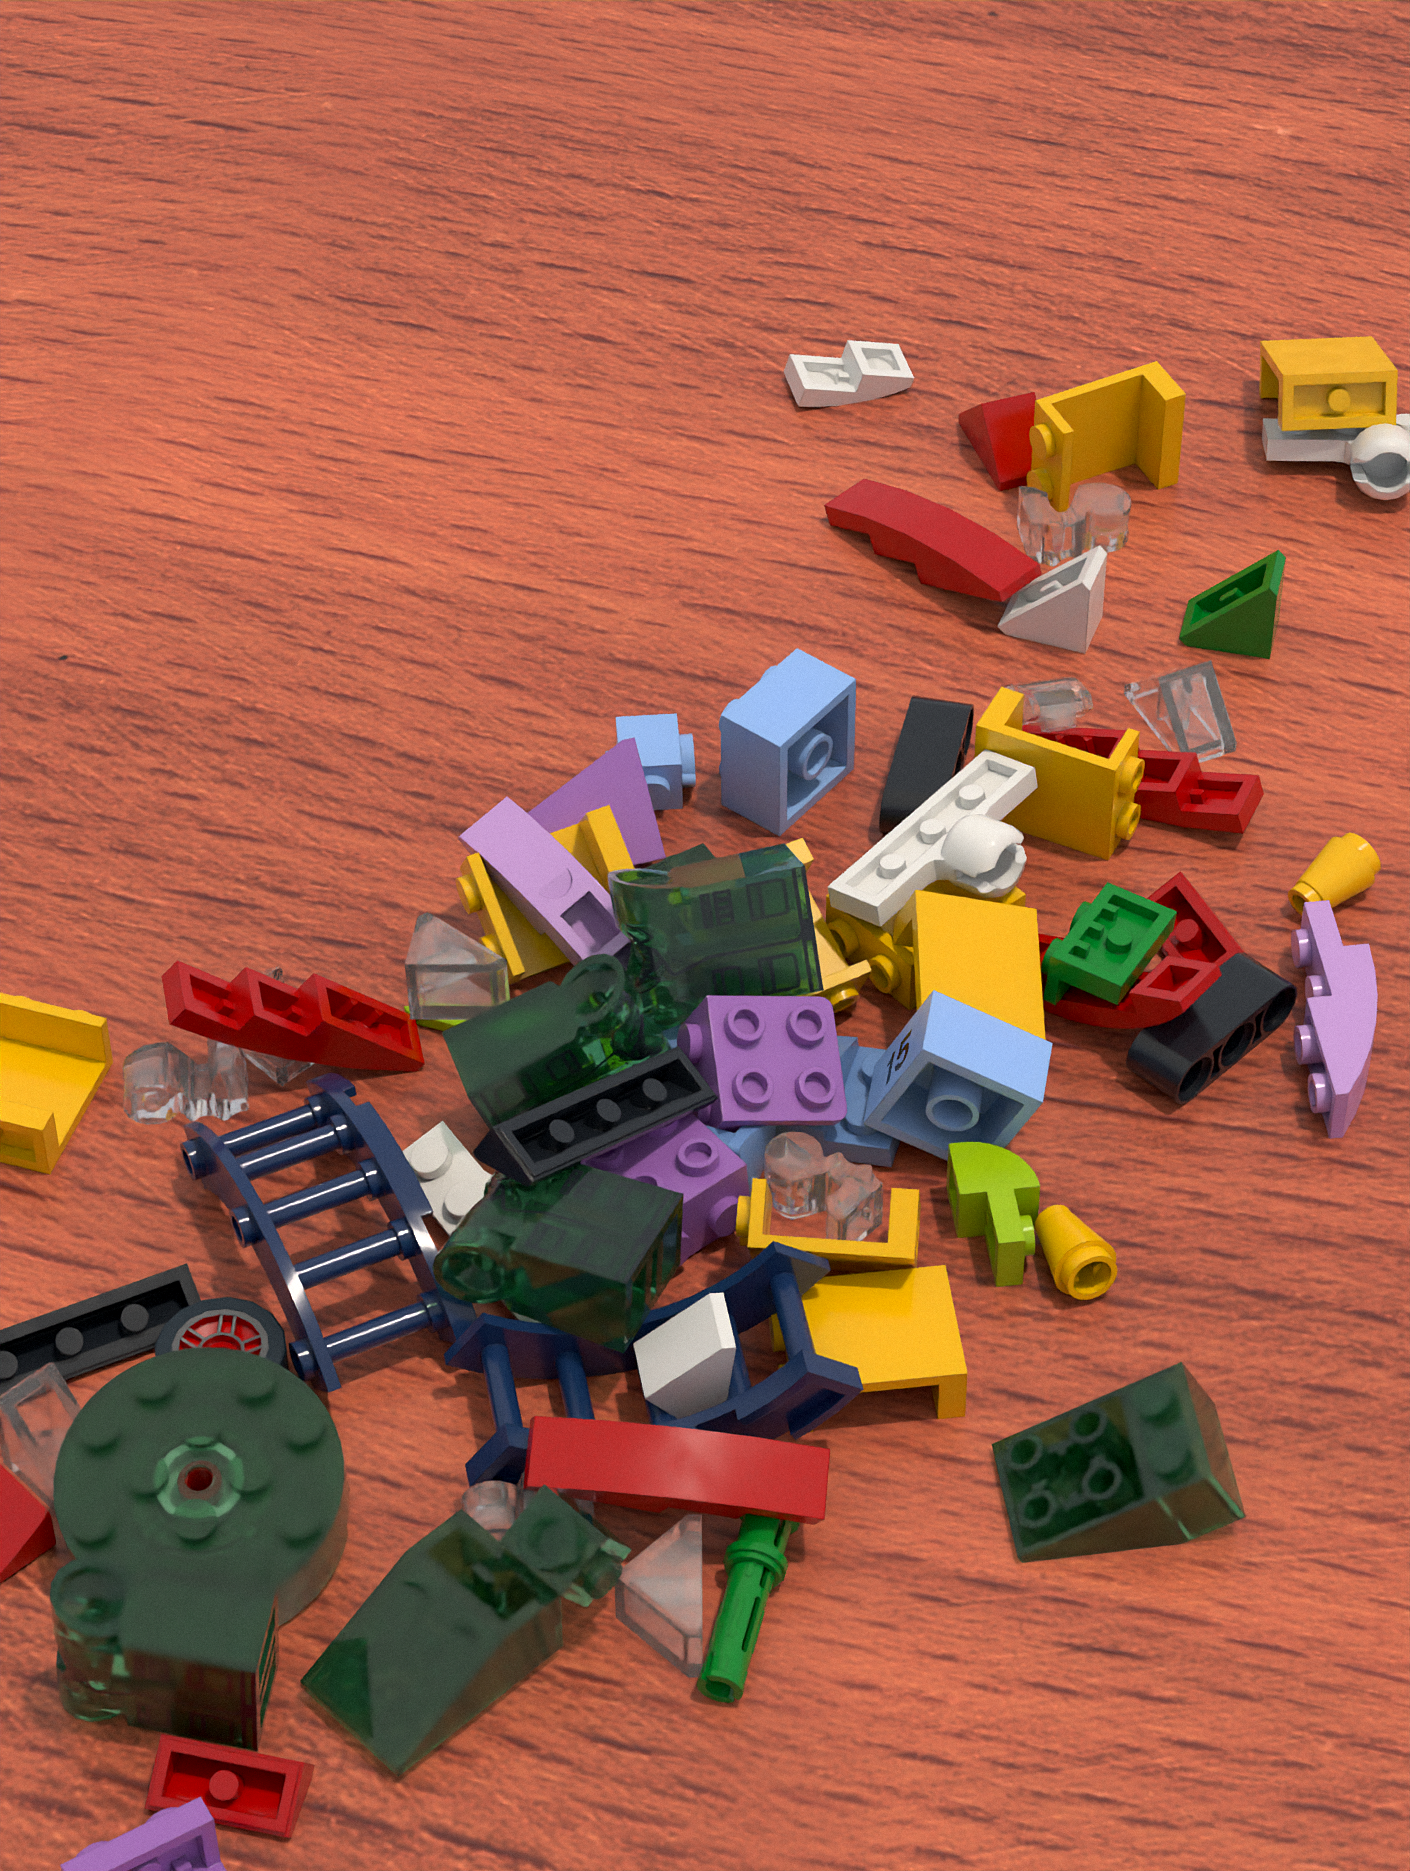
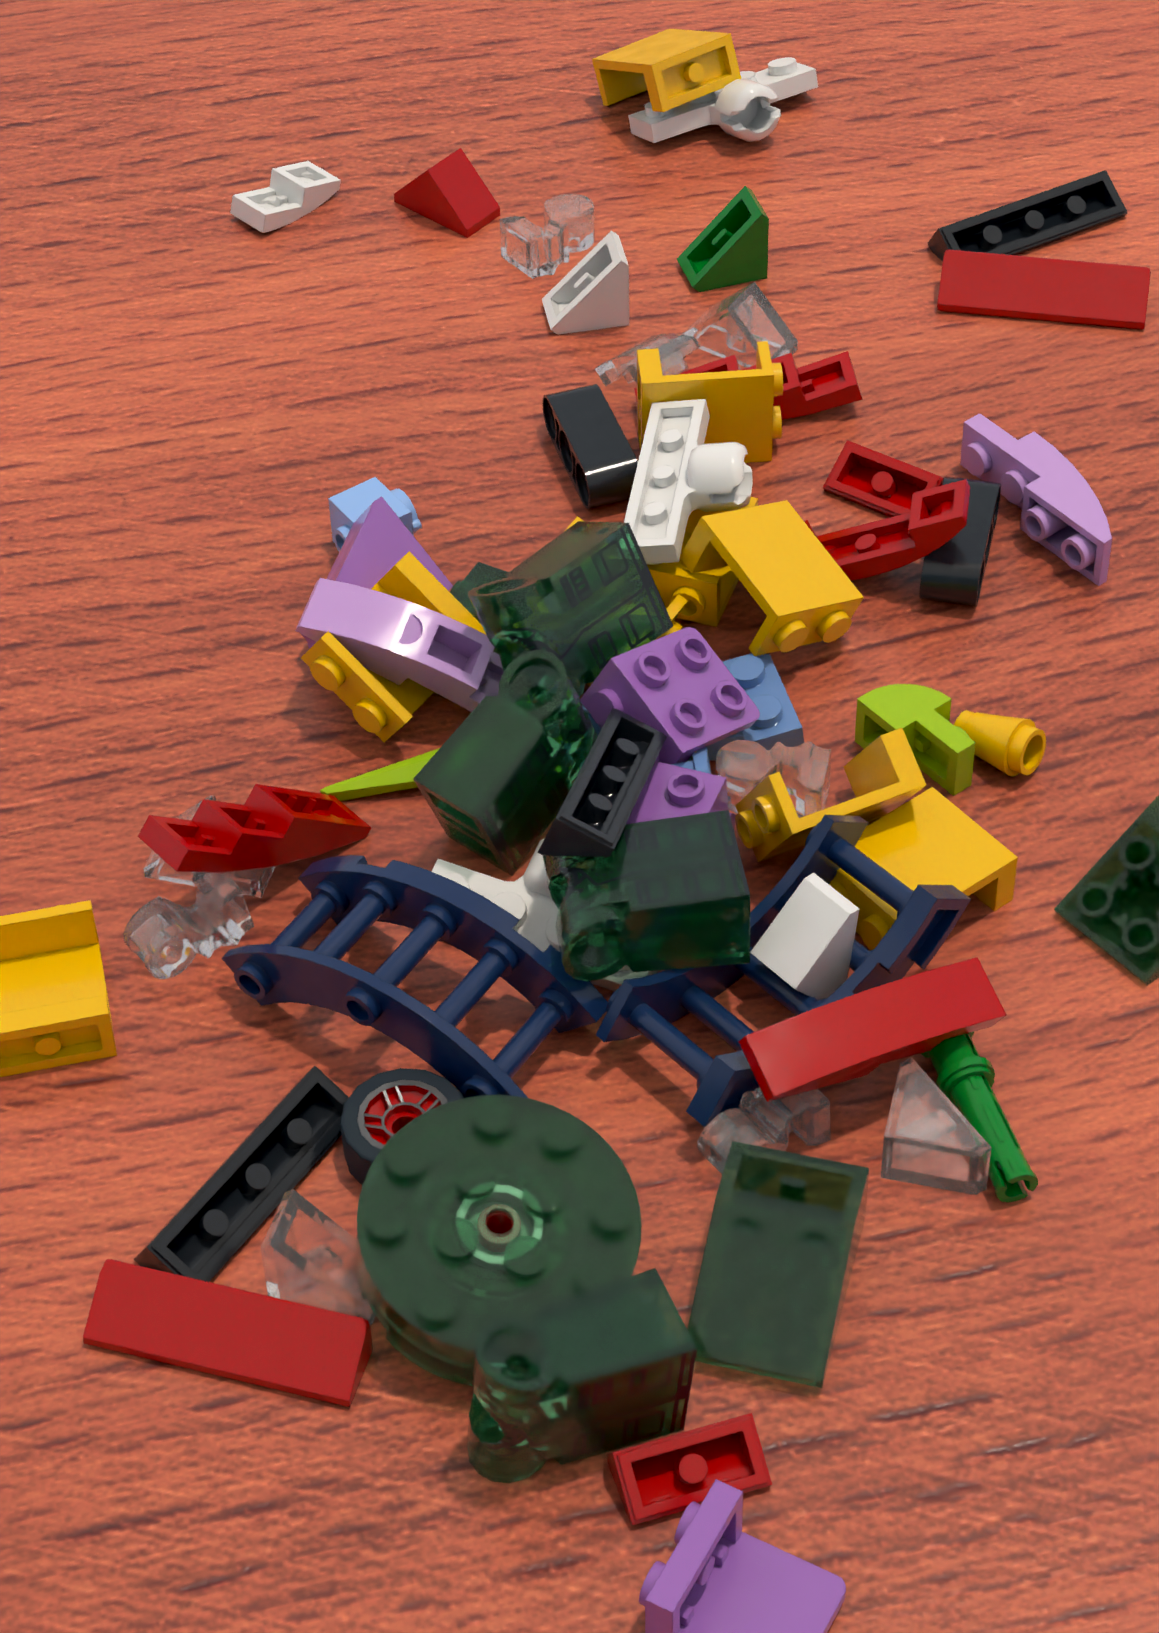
camera: 30 degrees left, 0 degrees up
(451, 973) = (355, 742): clear slope -> none
(566, 1547) = (844, 1127): clear green brick -> none
(787, 741) = (479, 462): light blue brick -> none
(943, 544) = (472, 284): red slope -> none
(957, 1078) = (833, 646): light blue brick -> none
(1105, 428) = (540, 146): yellow panel -> none
(1107, 945) = (852, 506): green bracket -> none
(1337, 873) = (954, 399): yellow cone -> none

